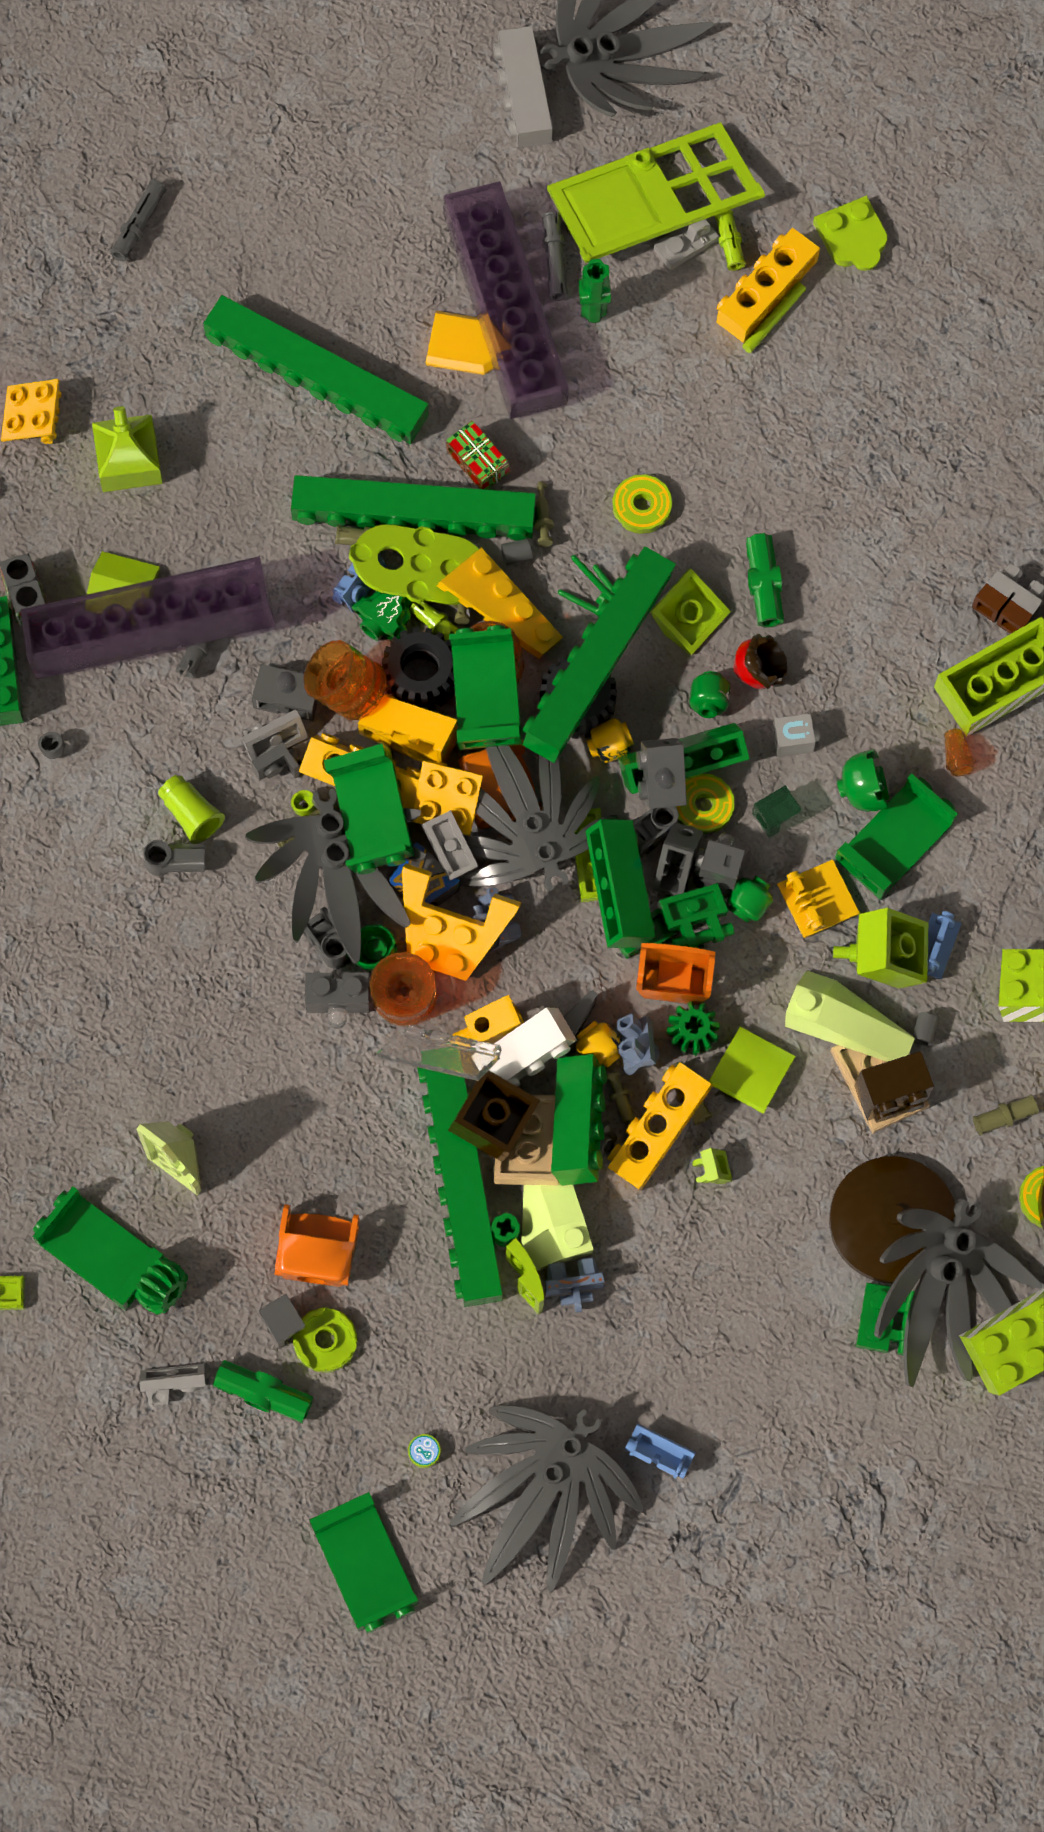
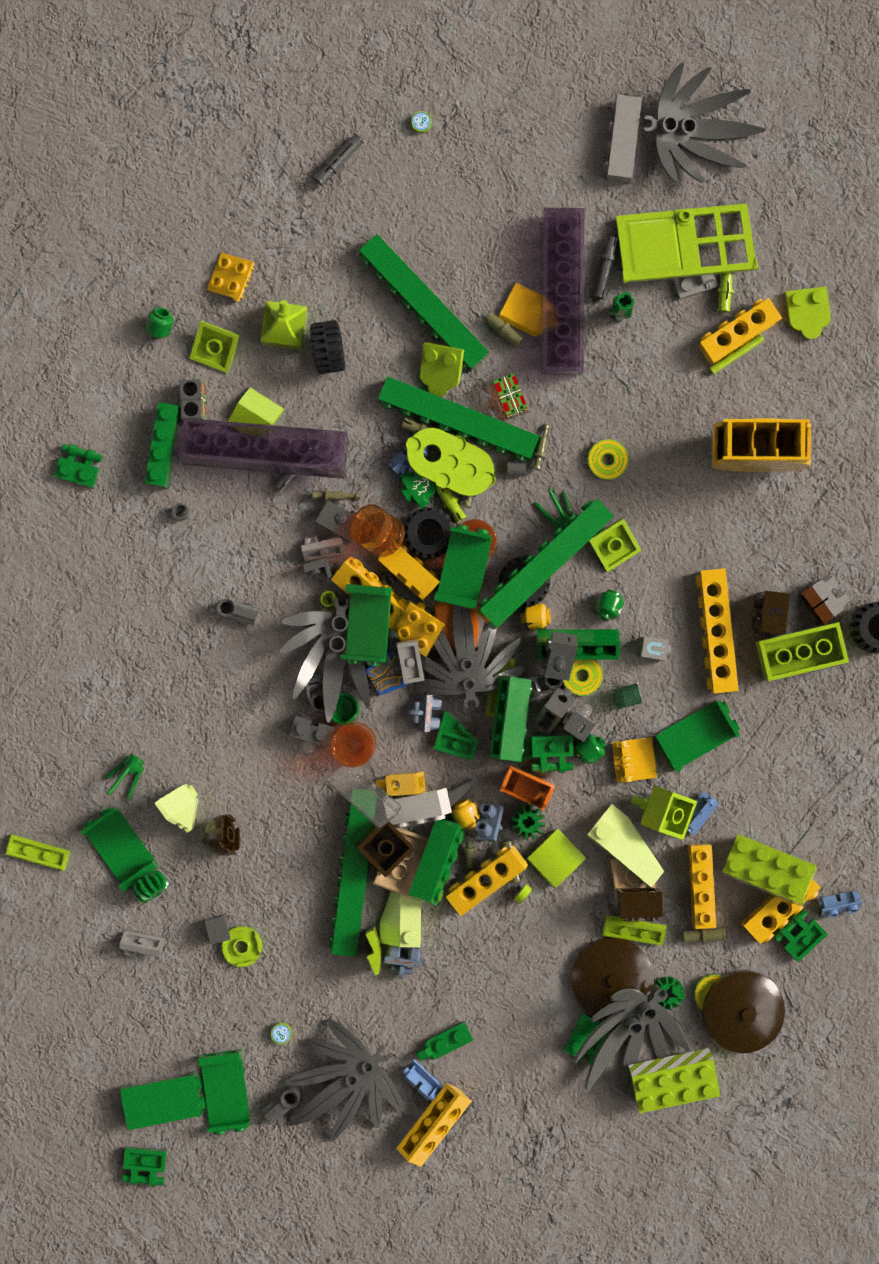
camera: 20 degrees right, 15 degrees up
(35, 509) = (214, 346): none -> lime slope
(80, 1122) = (132, 765): none -> green plant
(190, 809) = (255, 581): lime plant -> none
(198, 458) = (327, 347): none -> black tyre
(238, 143) = (421, 122): none -> tile
(245, 1181) = (222, 836): none -> dark brown cylinder
(263, 1391) = (194, 968): green piece -> none
(272, 1604) = (162, 1101): none -> green panel
(273, 1708) = (144, 1159): none -> green plate
(277, 658) = (333, 495): none -> olive piece
(316, 1248) = (252, 889): orange piece -> none
(367, 444) = (441, 367): none -> lime plate
(440, 374) = (504, 330): none -> olive pin
(445, 938) = (390, 717): yellow wing -> none
(455, 1558) = (281, 1104): none -> dark grey piece
(492, 593) = (491, 498): yellow wing -> none
(500, 1222) = (372, 920): green bush -> none
(549, 945) = (455, 738): none -> green wing
(676, 1388) = (445, 1042): none -> green hinge
(698, 1512) = (433, 1125): none -> yellow brick
(715, 1166) = (513, 913): lime tile -> none
(719, 1134) = (522, 894): none -> lime tile
(760, 662) = (648, 594): dark brown hair -> none
(764, 580) = (669, 537): green piece -> none
(848, 406) = (761, 445): none -> yellow brick
(851, 615) = (717, 578): none -> yellow brick
(864, 782) = (688, 695): green cylinder -> none
(900, 1138) = (634, 930): none -> lime tile
(925, 1029) = (673, 865): dark grey hinge -> none
(941, 633) = (771, 613): none -> dark brown brick
(958, 754) = (755, 692): clear orange cone -> none
(976, 1042) = (702, 885): none -> yellow brick
(992, 1226) = (677, 990): none -> green gear

